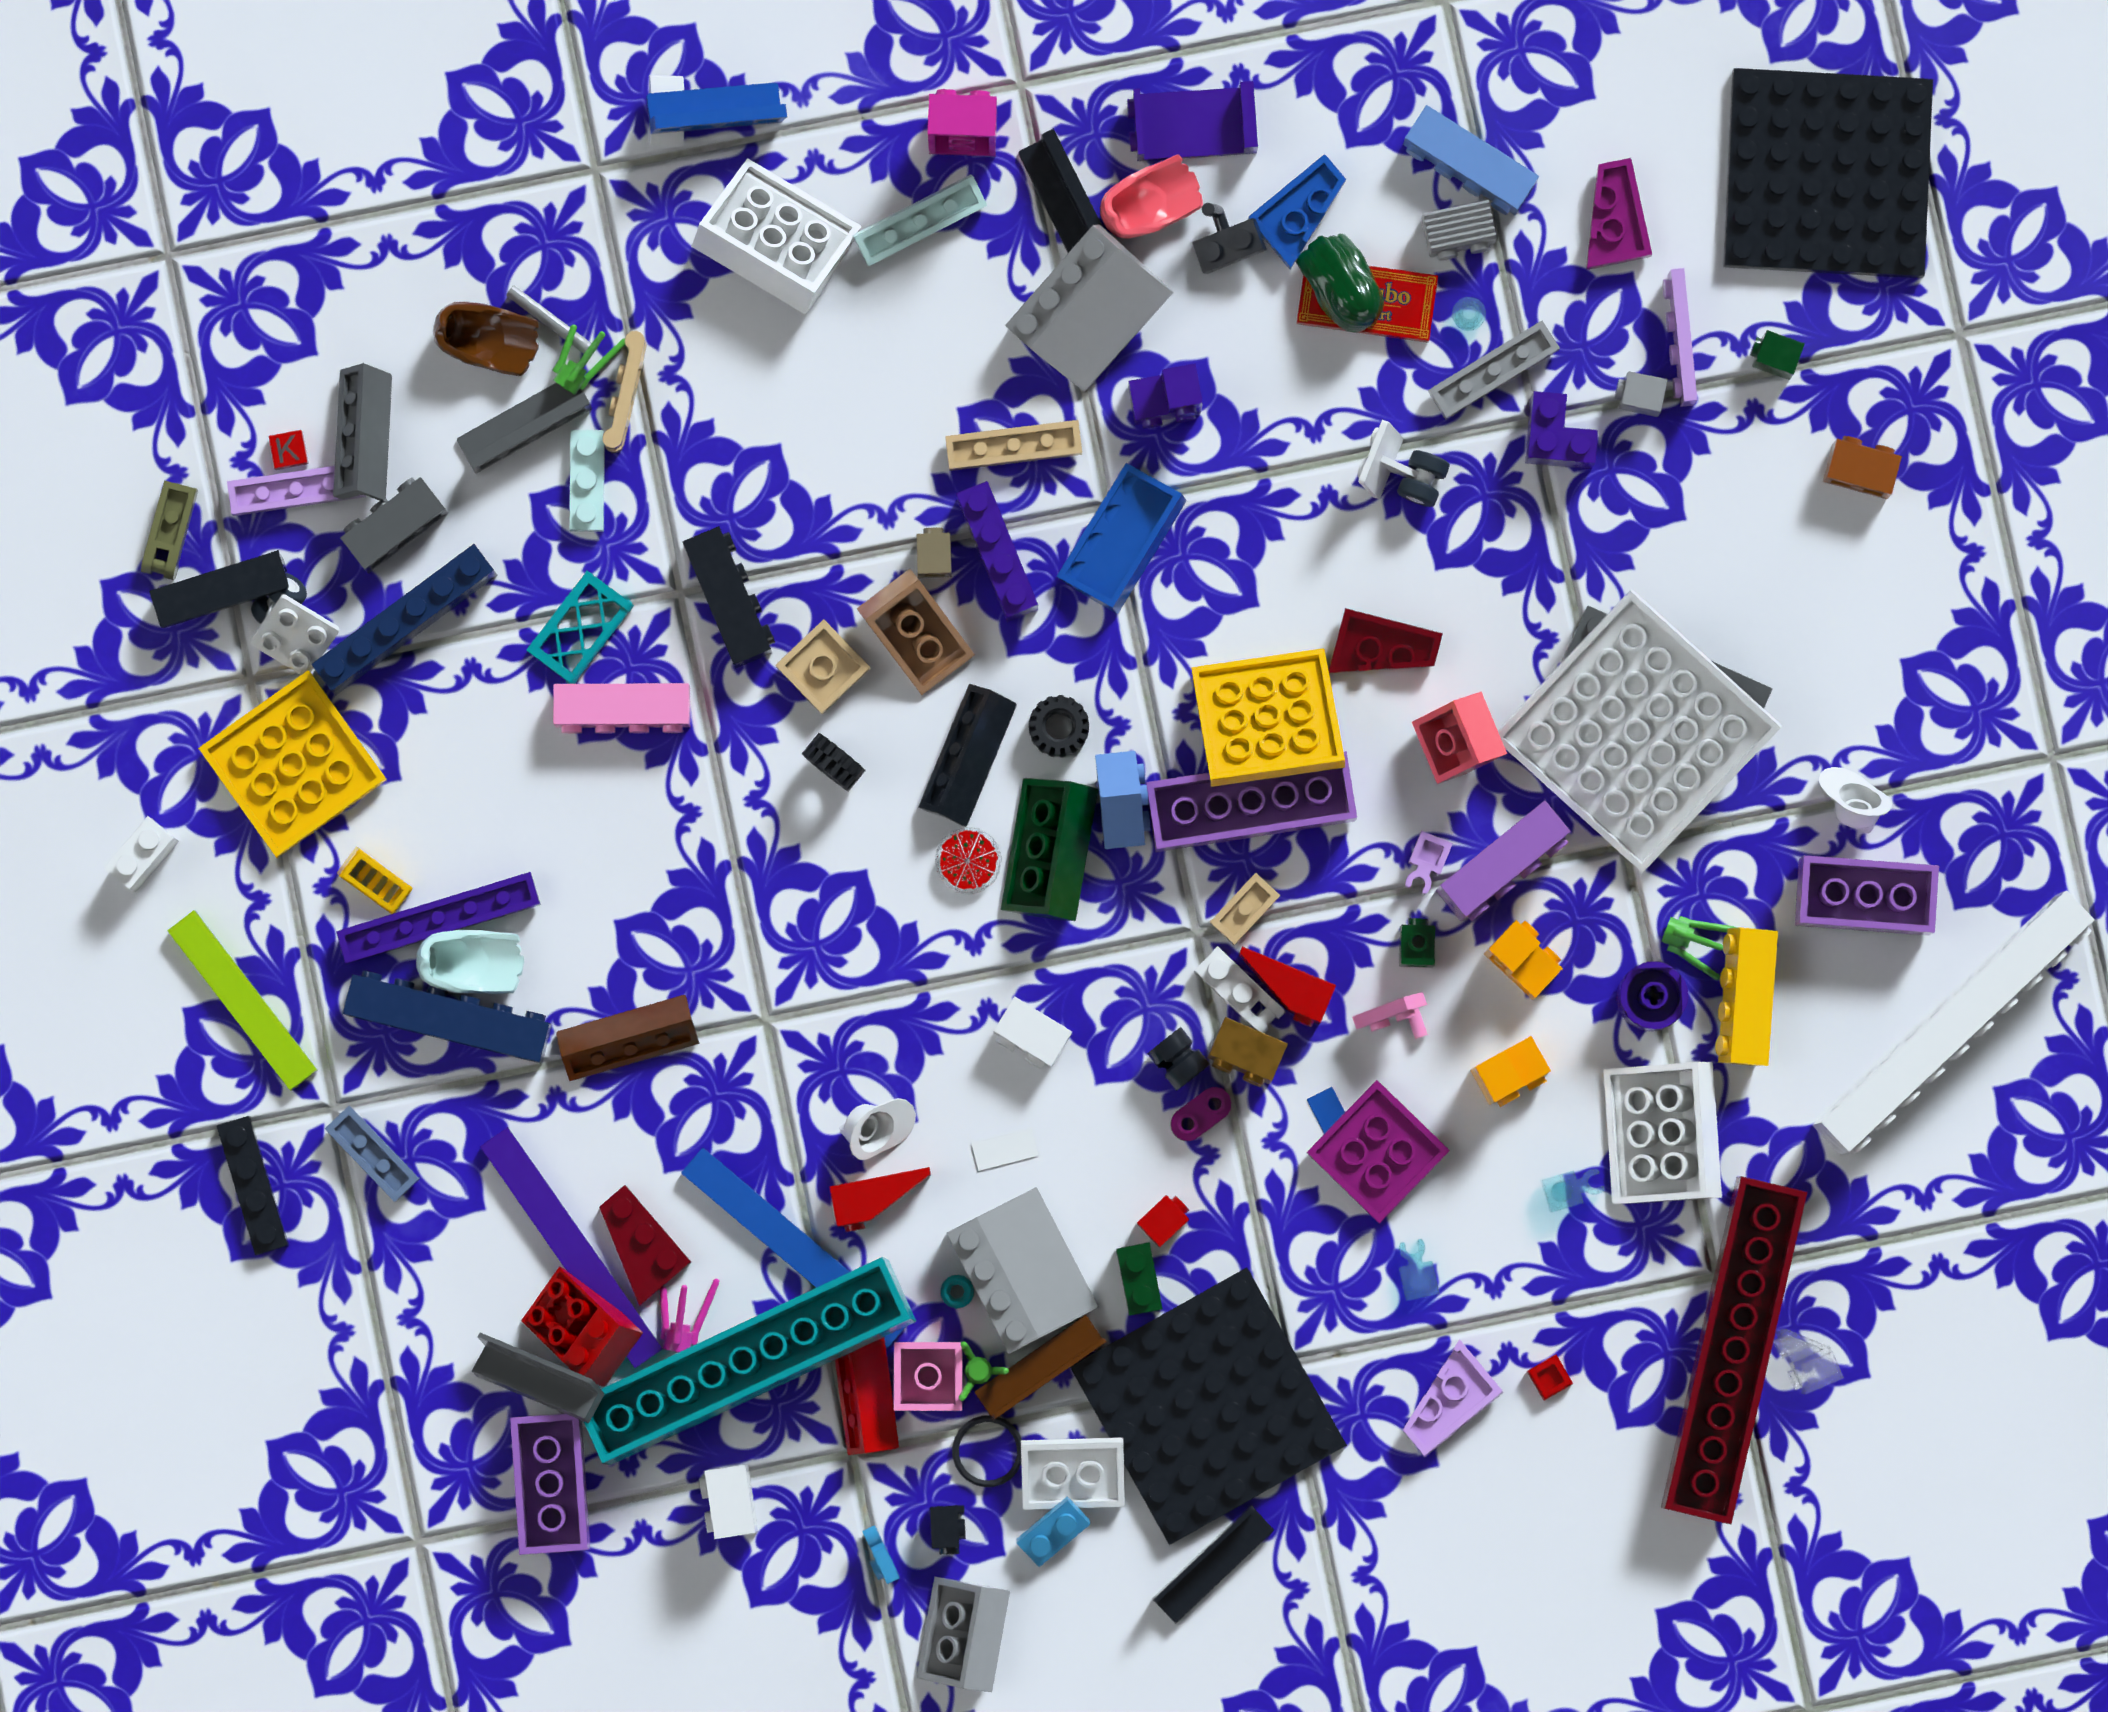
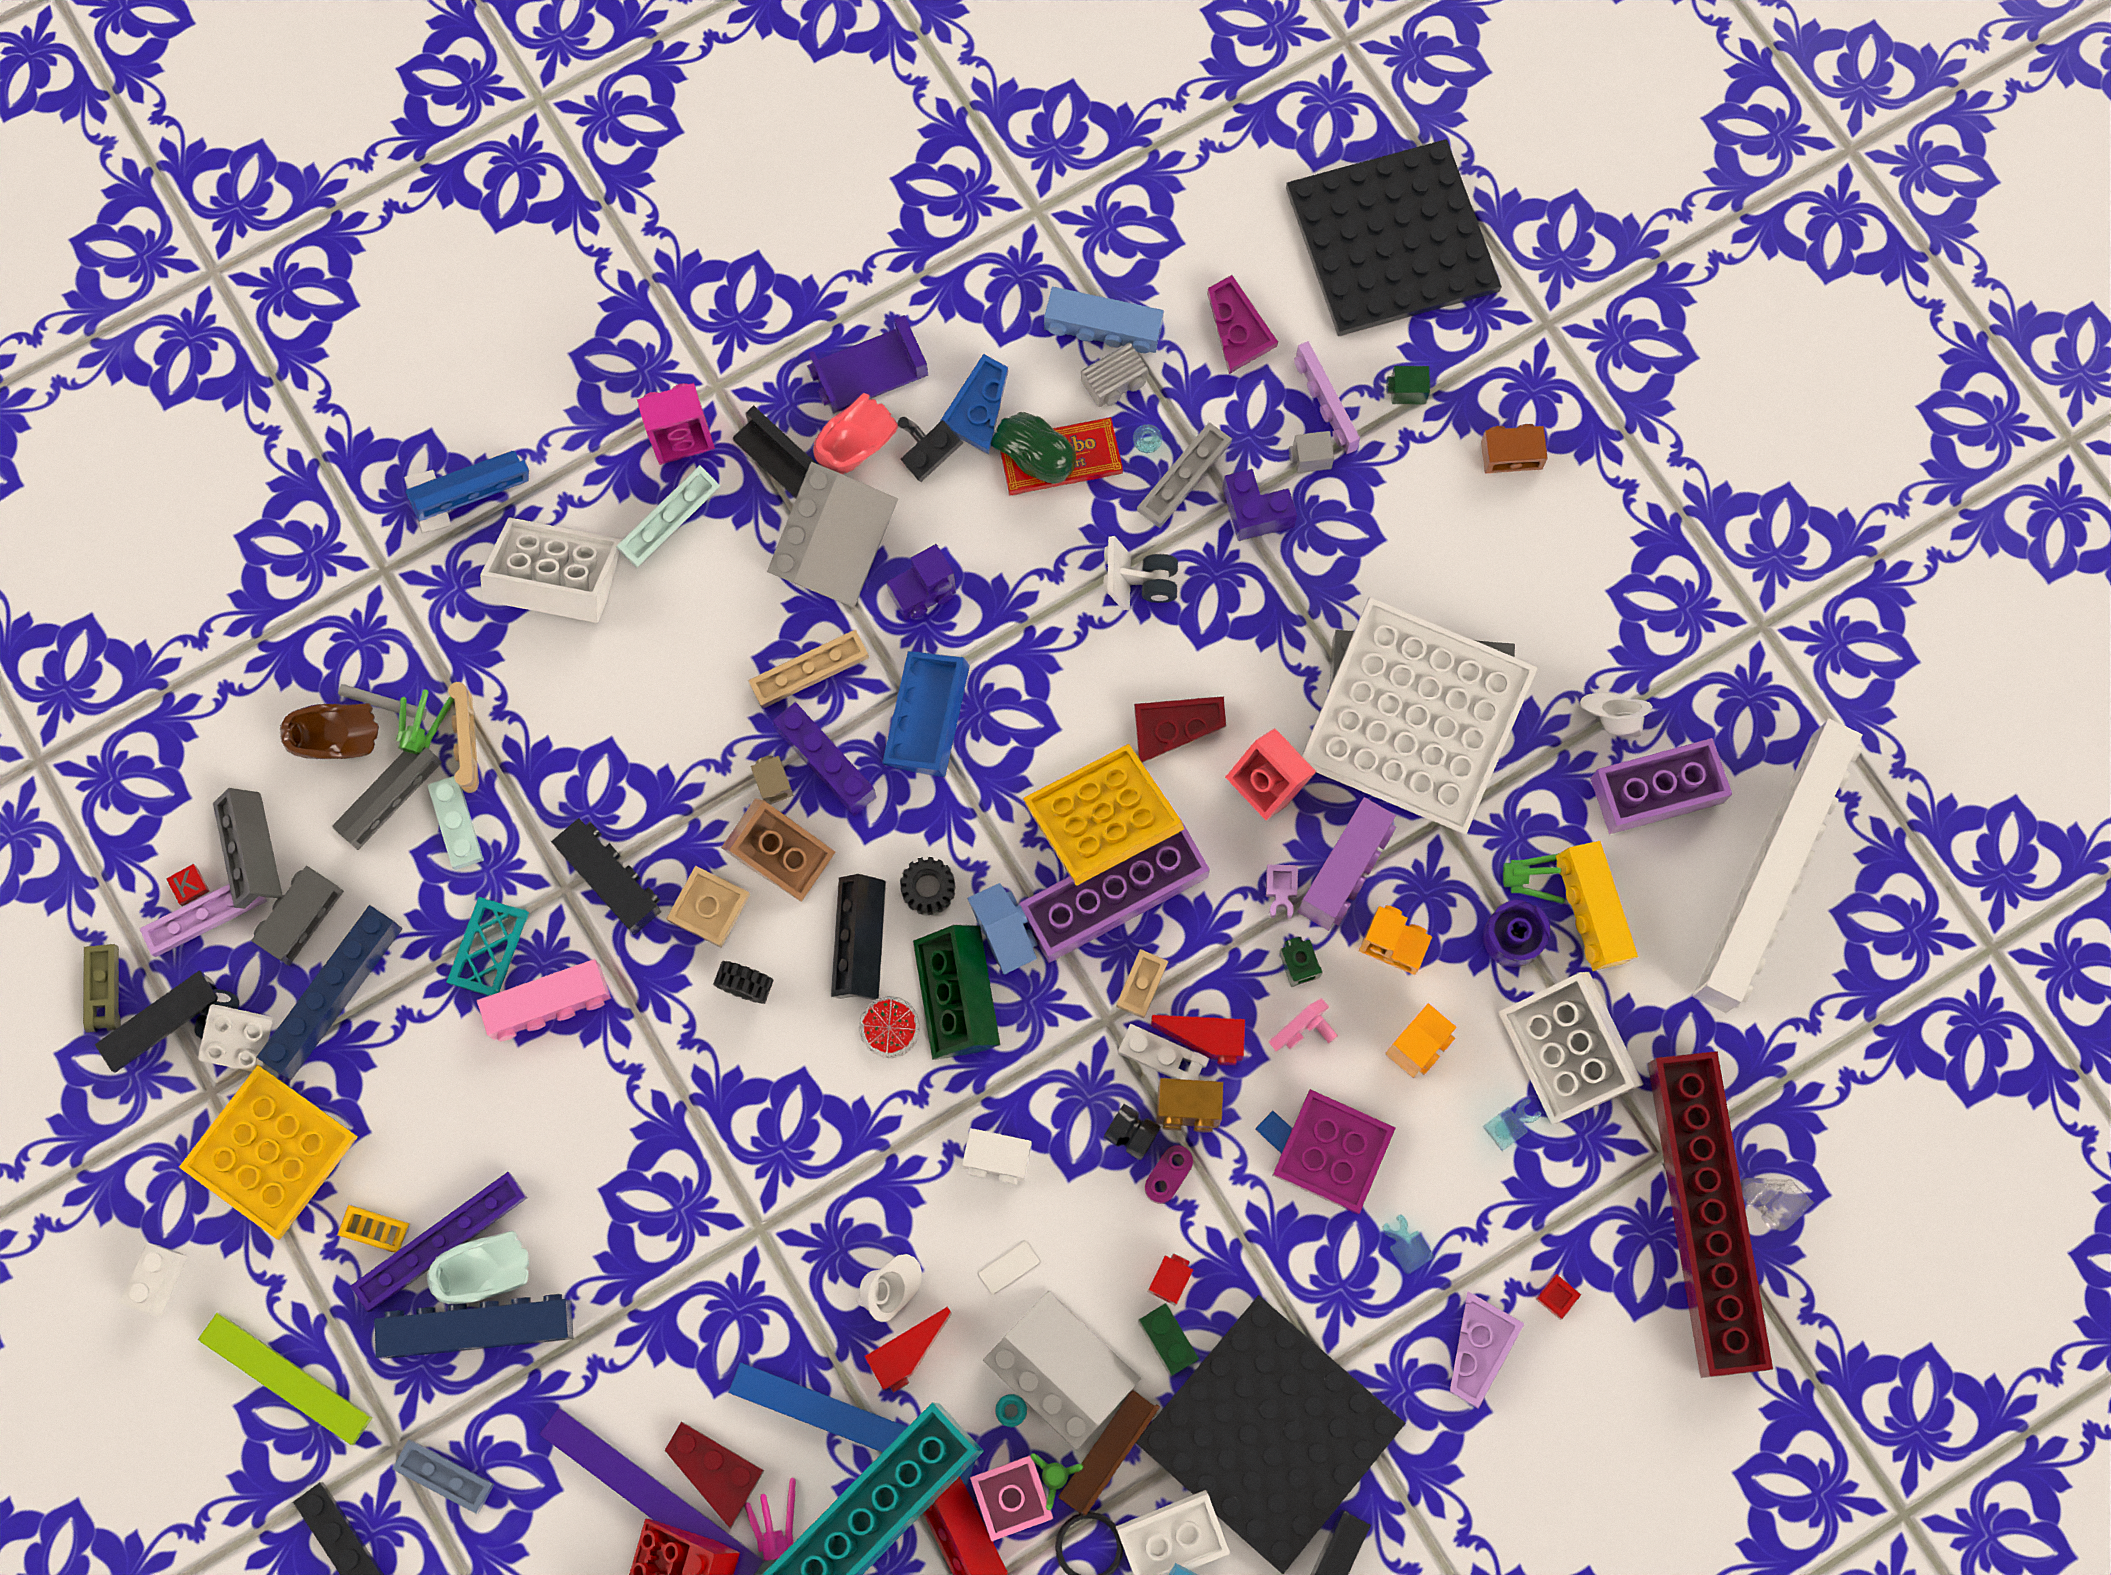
camera: 15 degrees left, 10 degrees down
(627, 1037) = (641, 1288): reddish brown panel -> none

